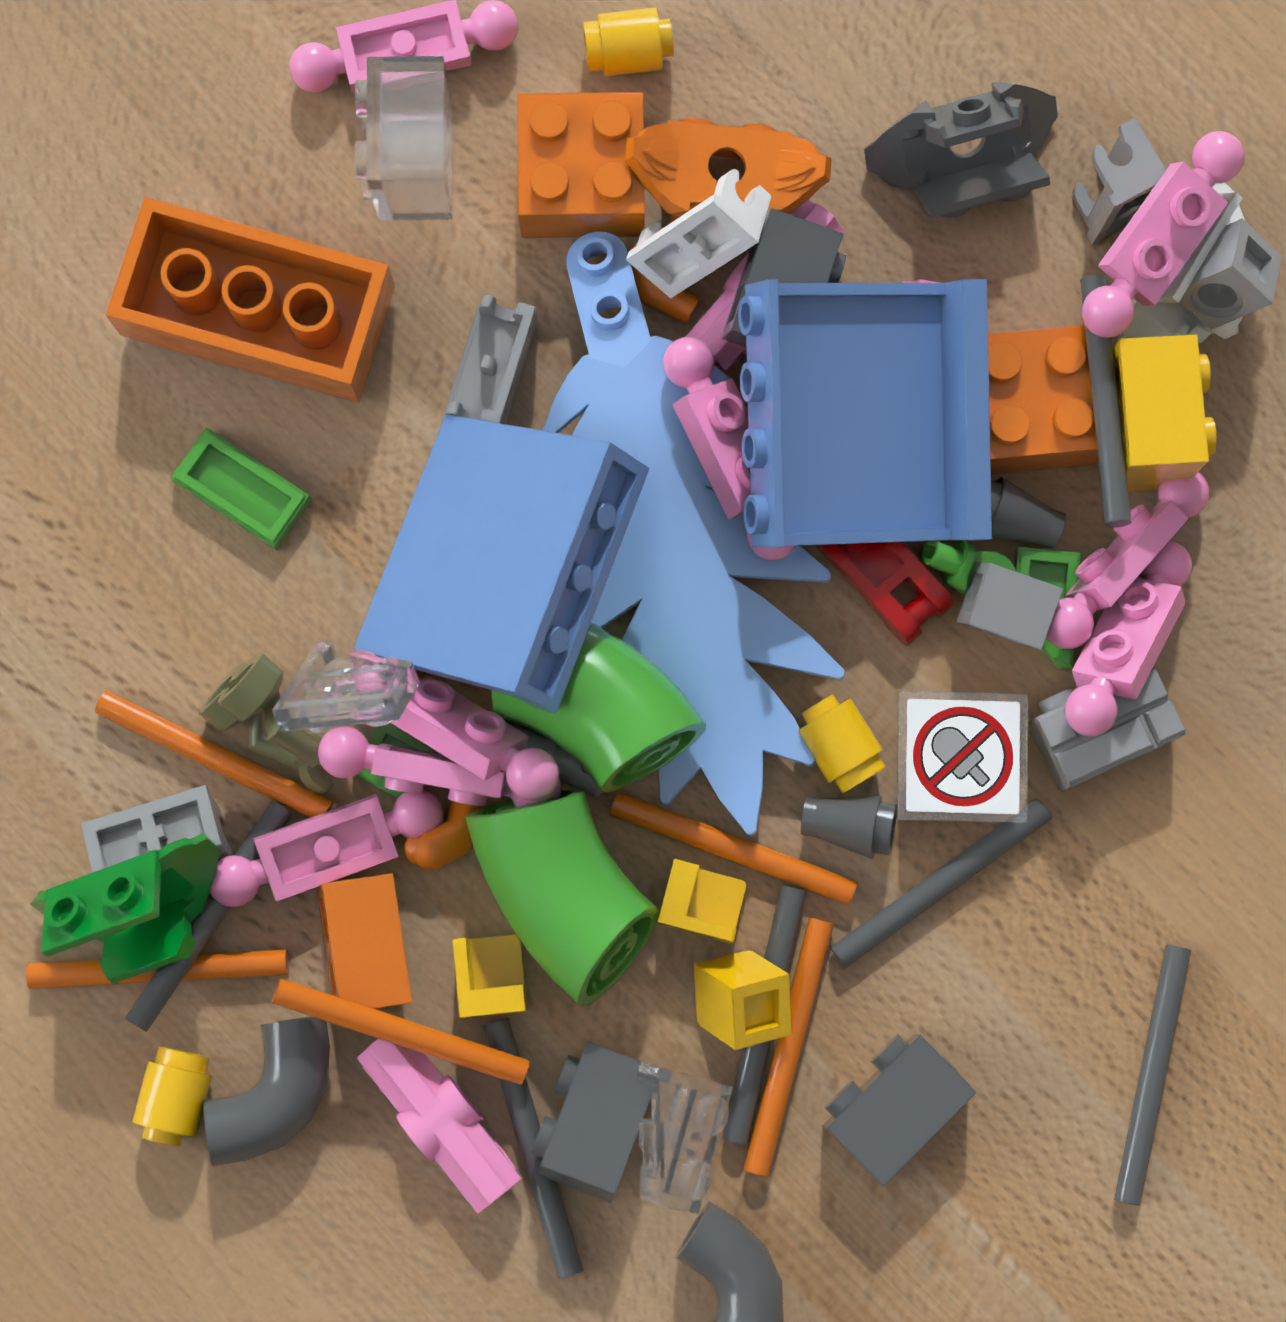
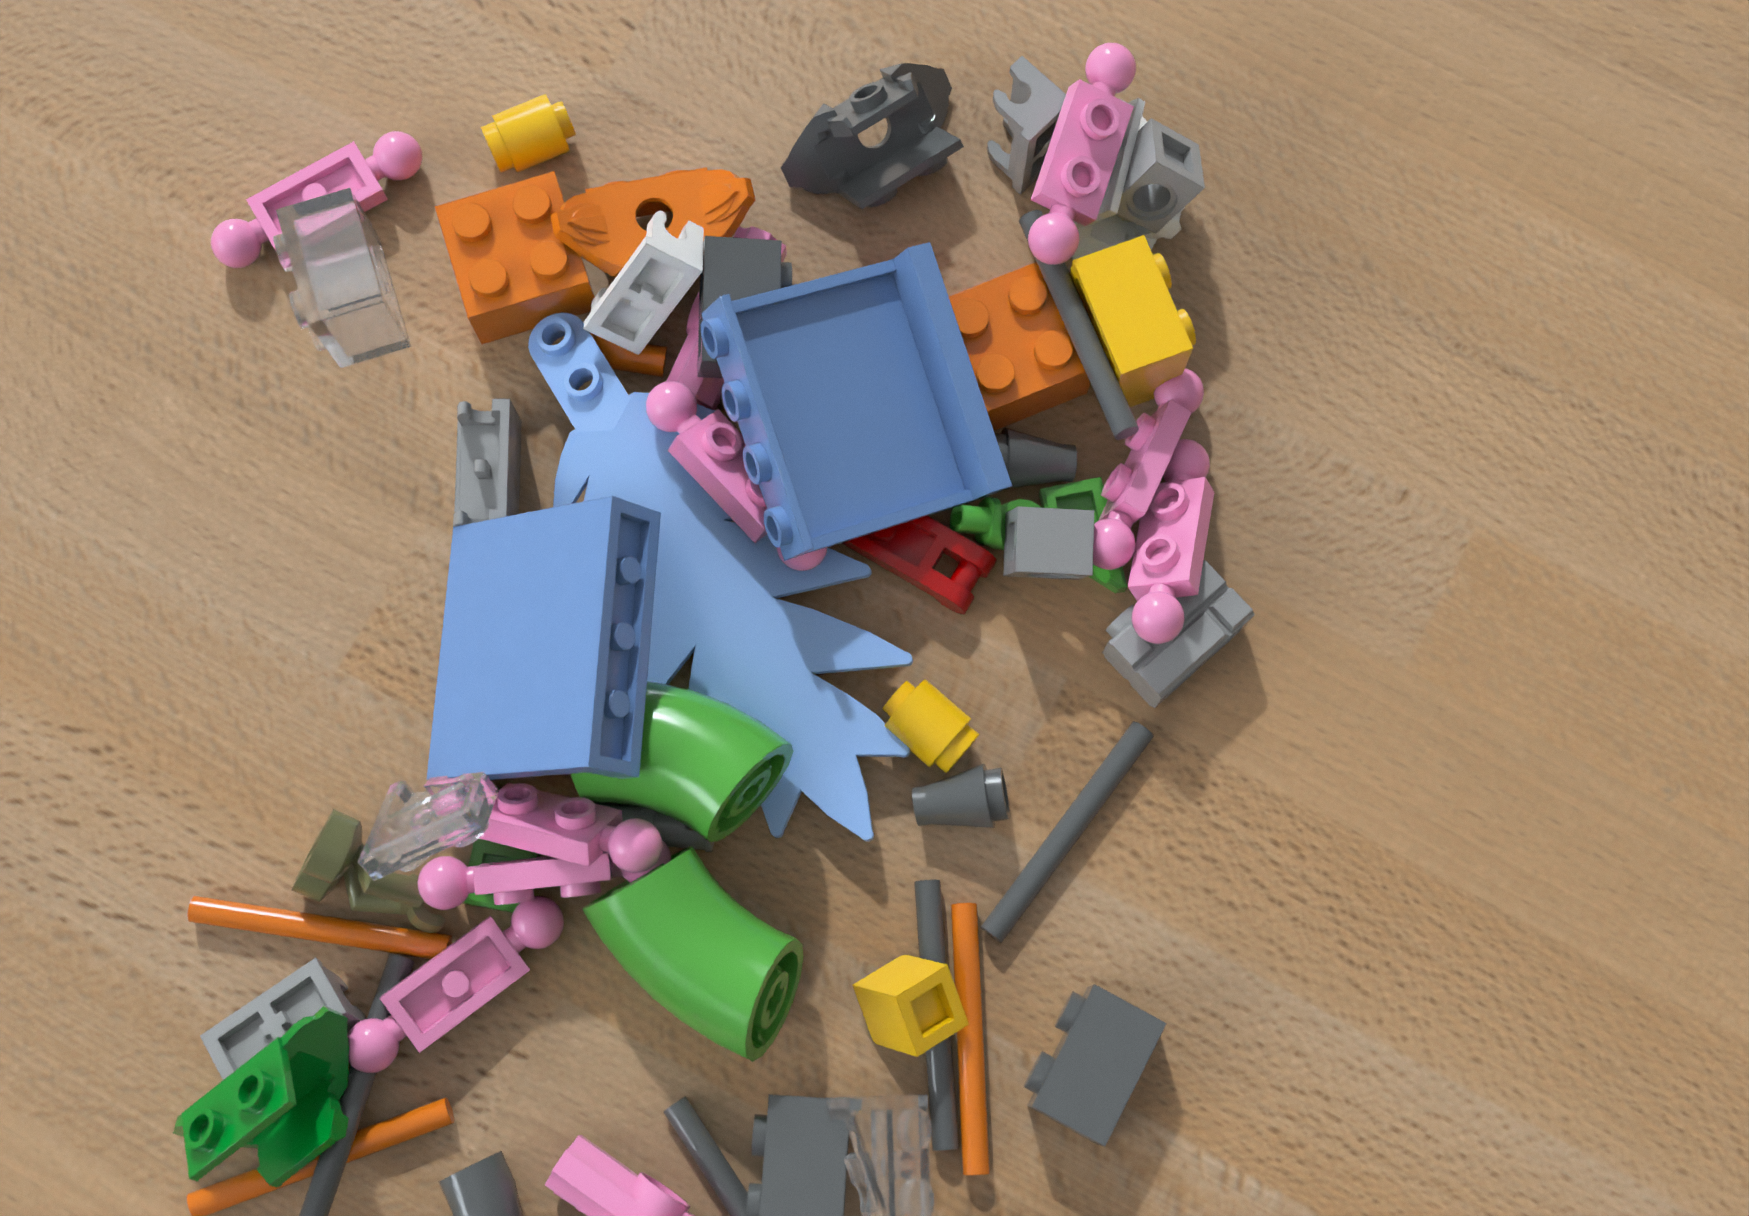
camera: 15 degrees left, 5 degrees down
(241, 488) = (276, 659): bright green tile -> none
(251, 299) = (232, 474): orange brick -> none
(364, 941) = (520, 1068): orange hinge -> none
(400, 1031) = (578, 1144): orange bar -> none
(443, 843) = (571, 942): orange arm -> none
(489, 975) = (654, 1060): yellow panel -> none
(702, 902) = (841, 922): yellow panel -> none
(733, 848) = (856, 859): orange bar -> none
(962, 757) = (1049, 702): piece -> none
(1152, 1075) = (1330, 954): dark grey bar -> none

